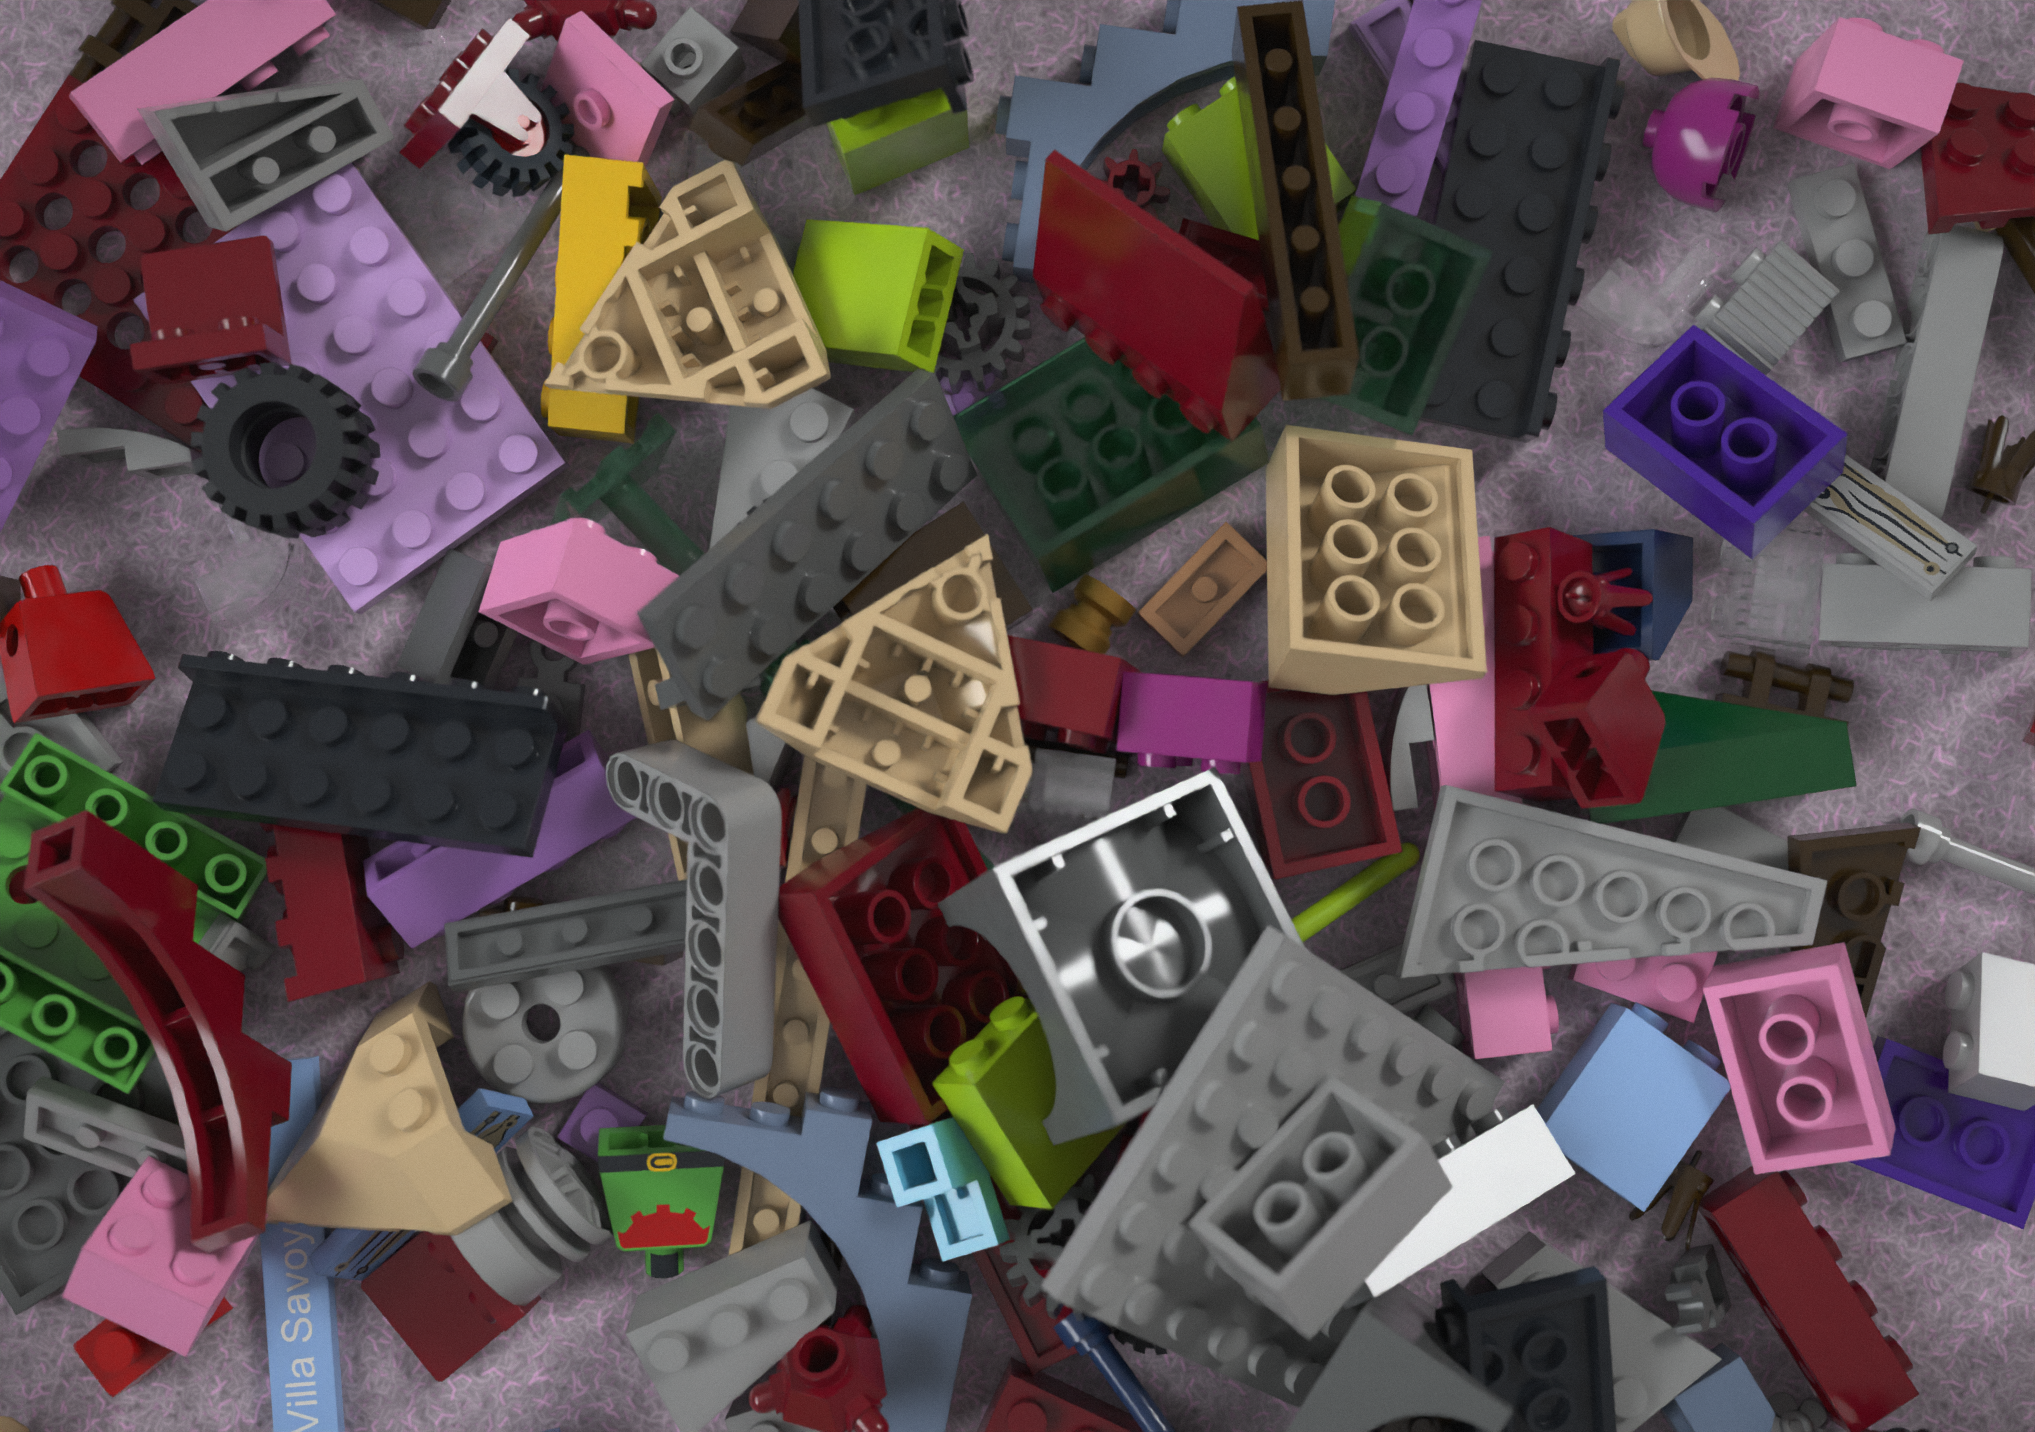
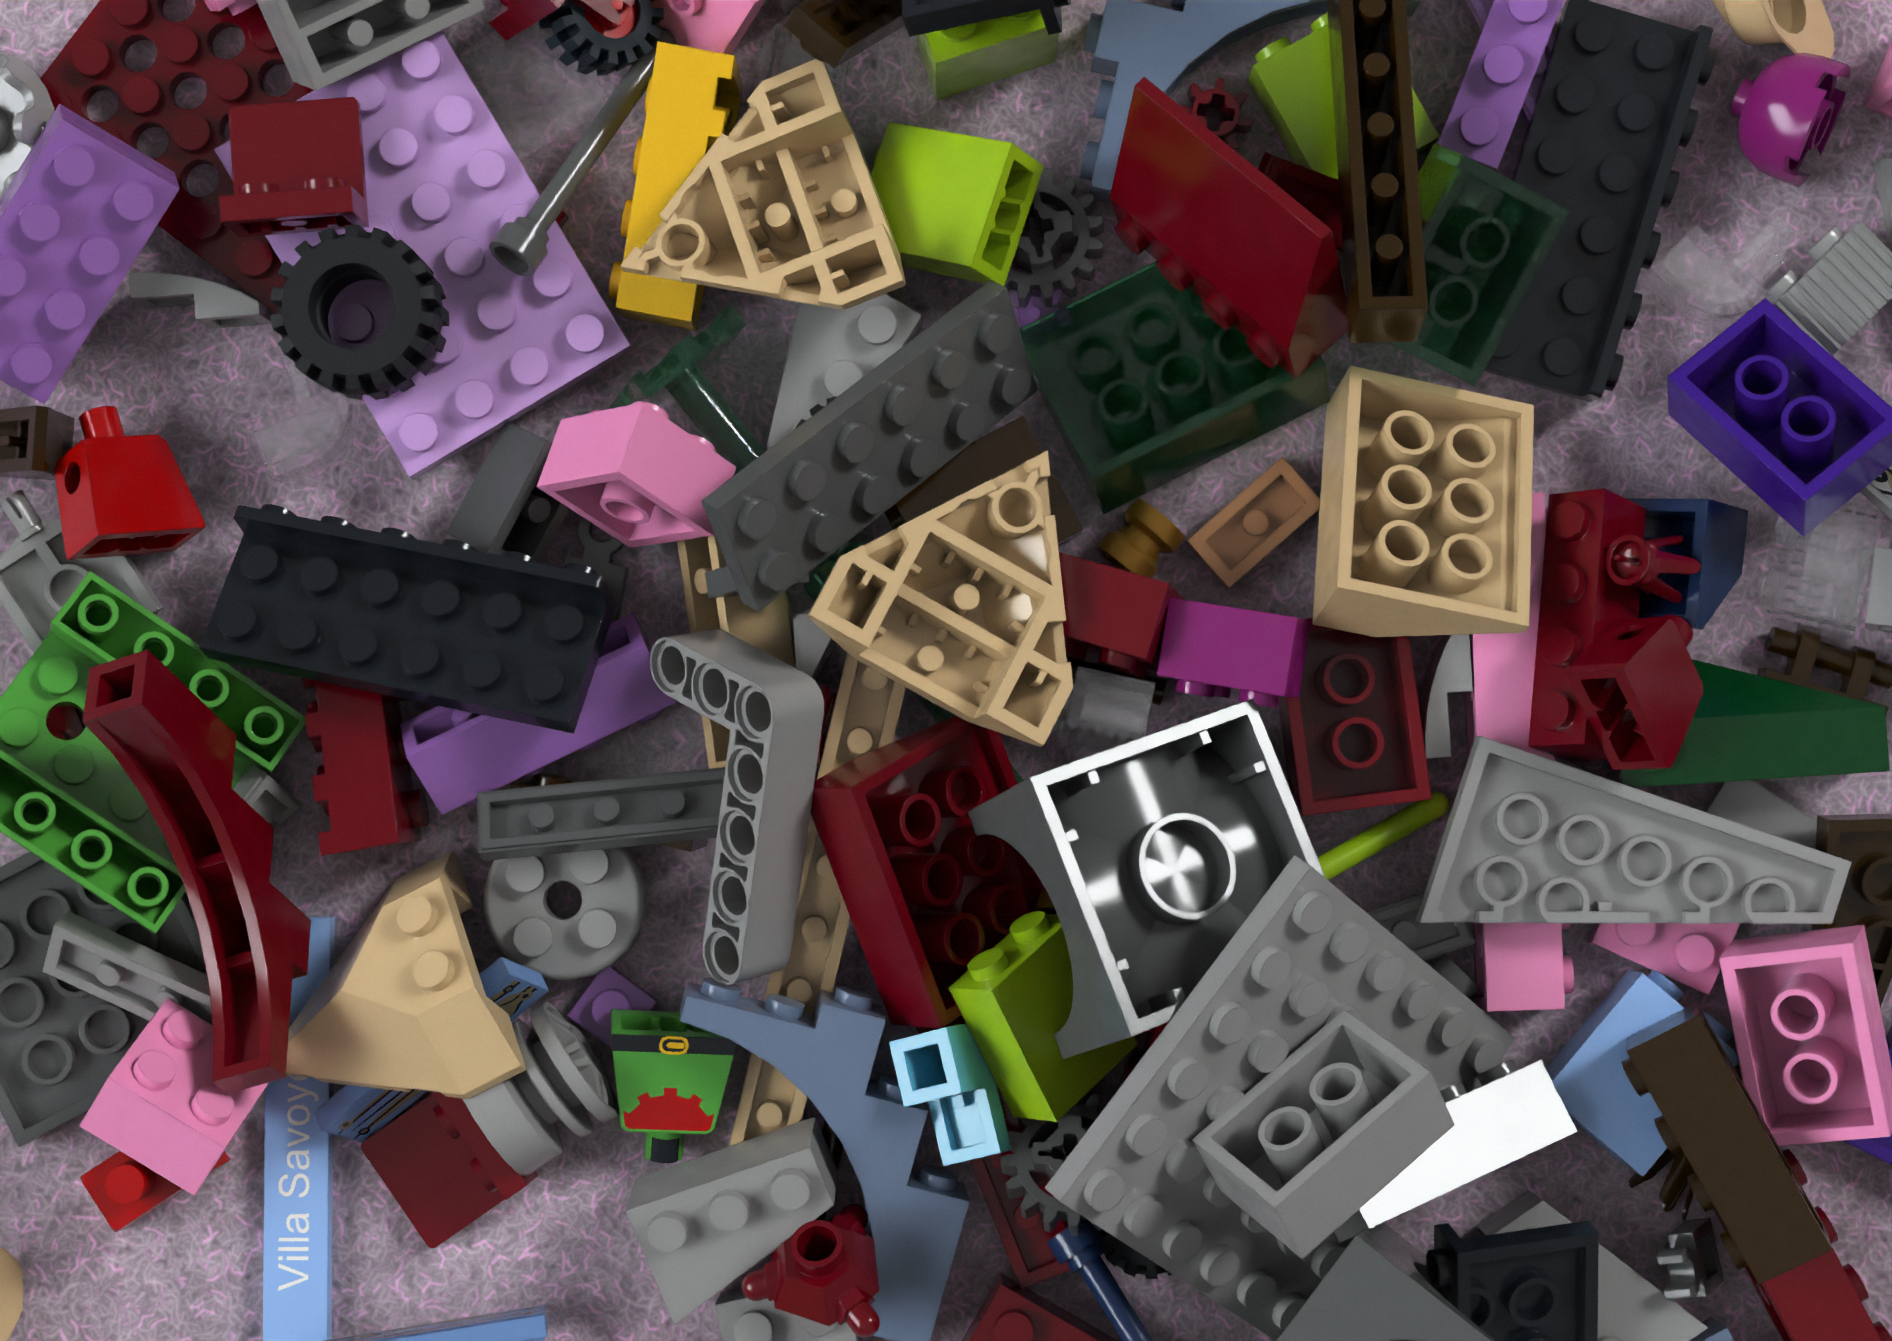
camera: 10 degrees right, 0 degrees up
(1726, 1175) = (1727, 1145): none -> dark brown brick

